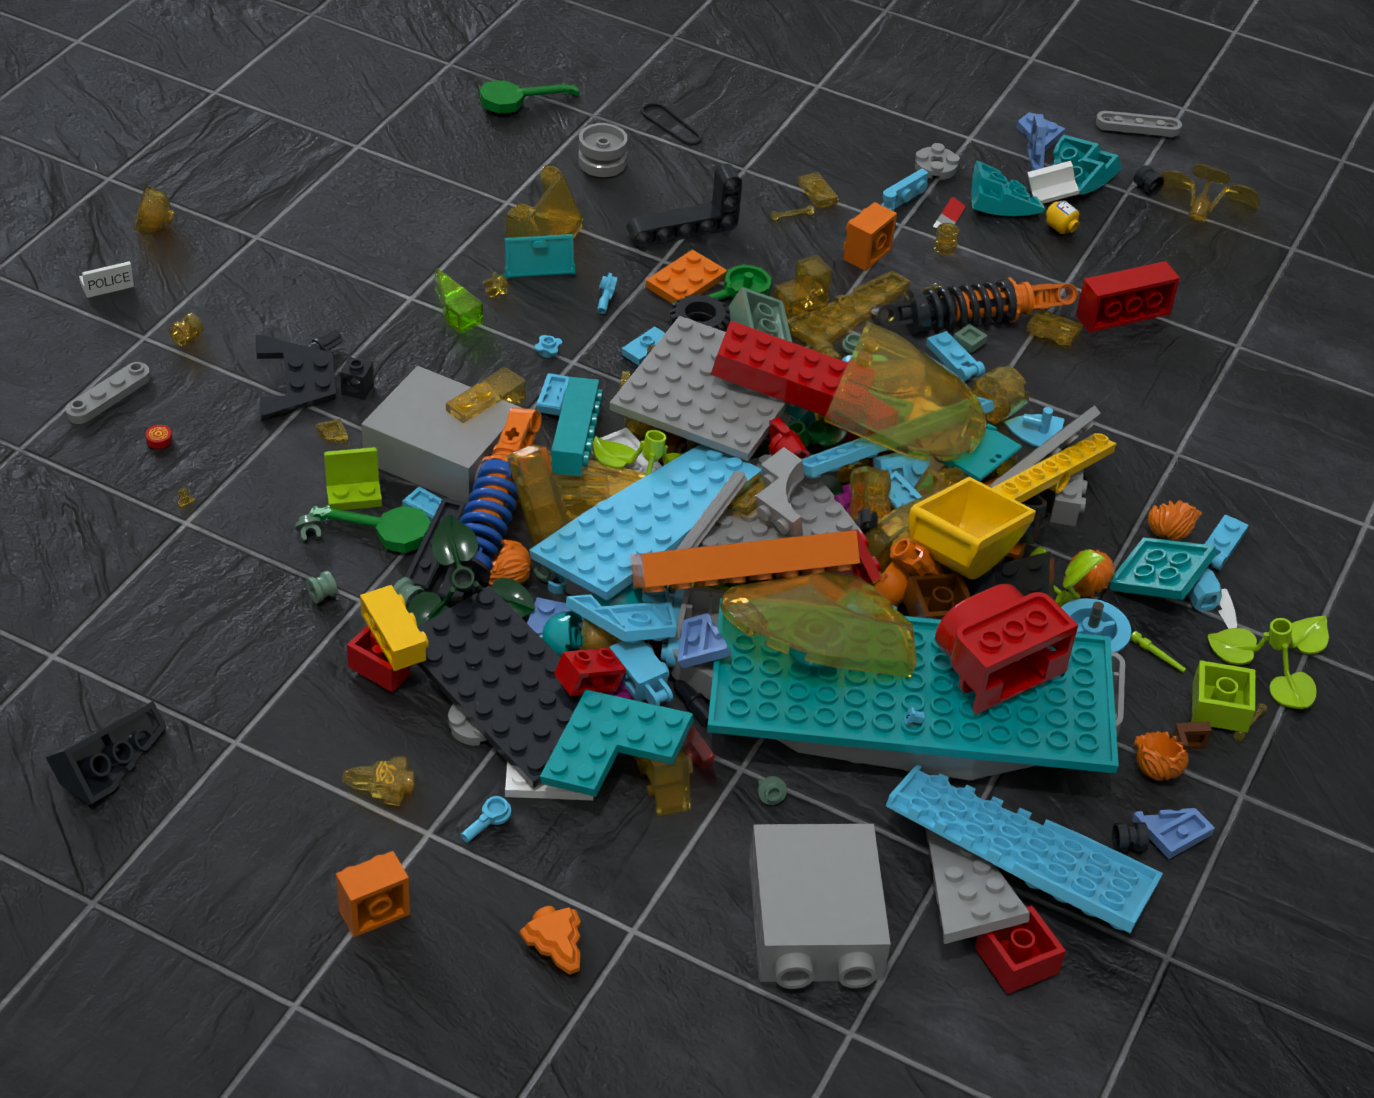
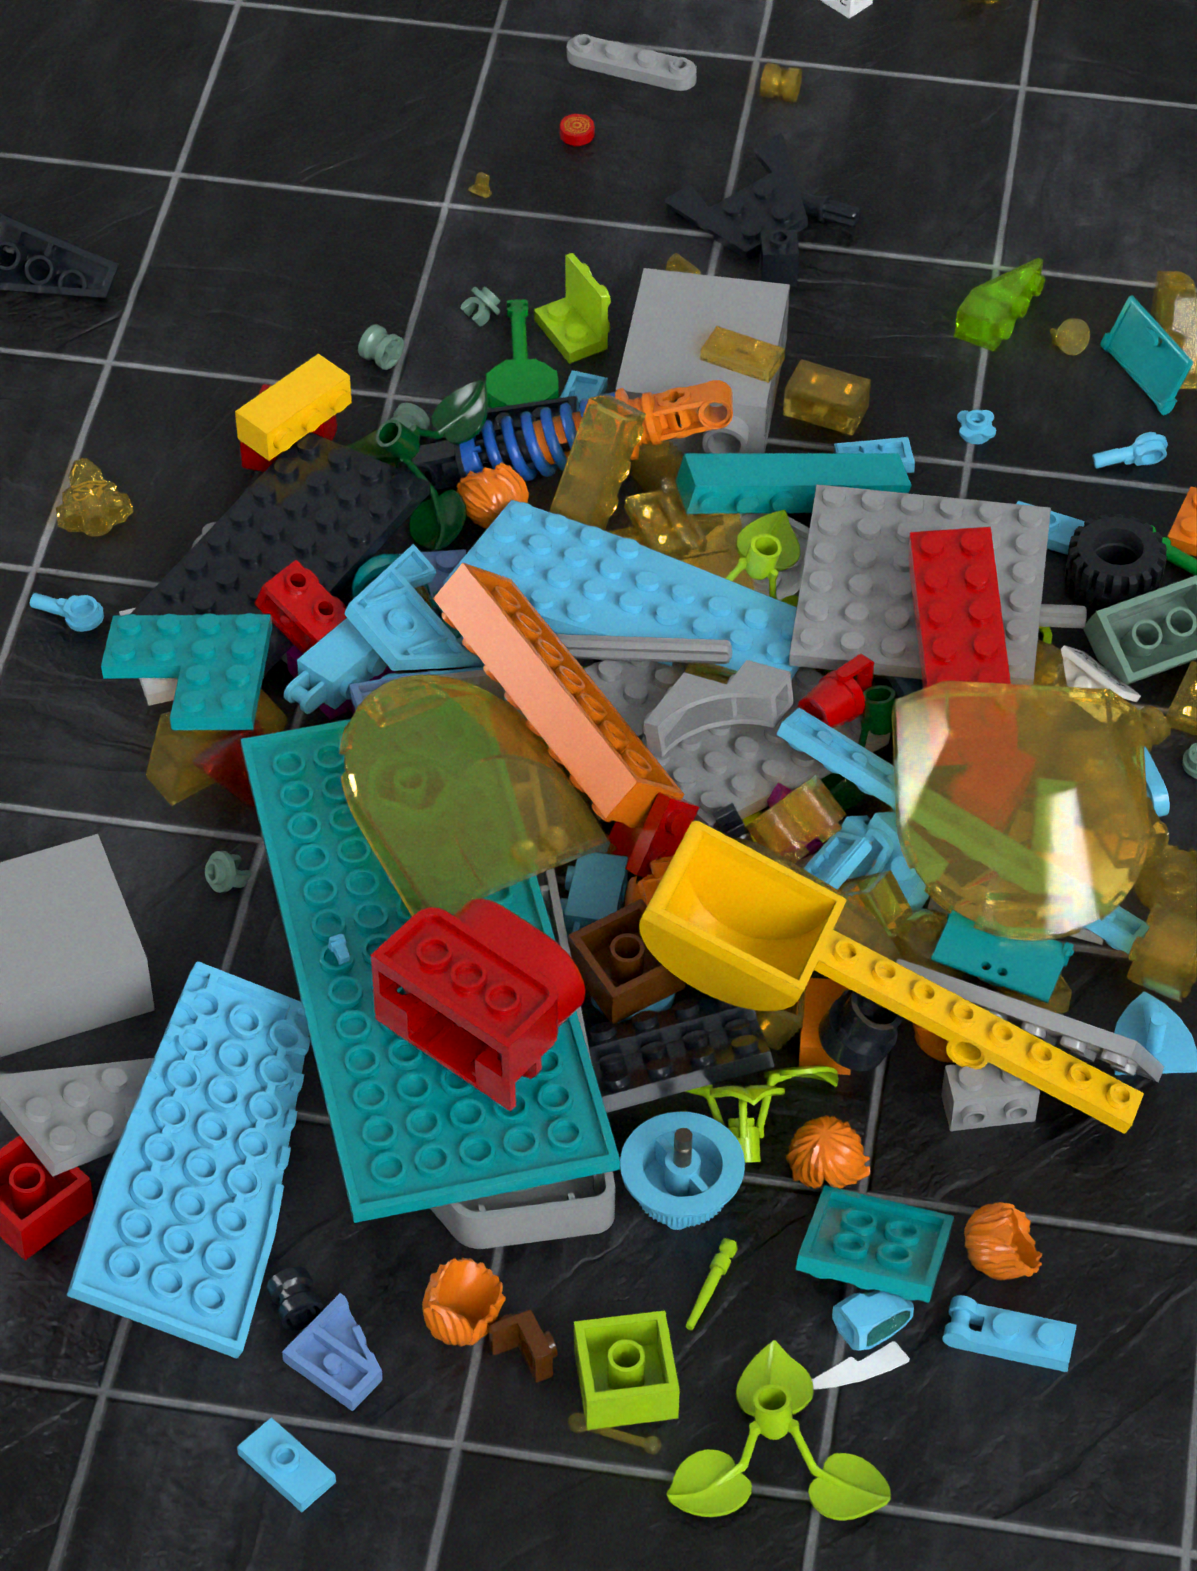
camera: 75 degrees right, 5 degrees up
(1244, 875) = (286, 1464): none -> medium azure plate

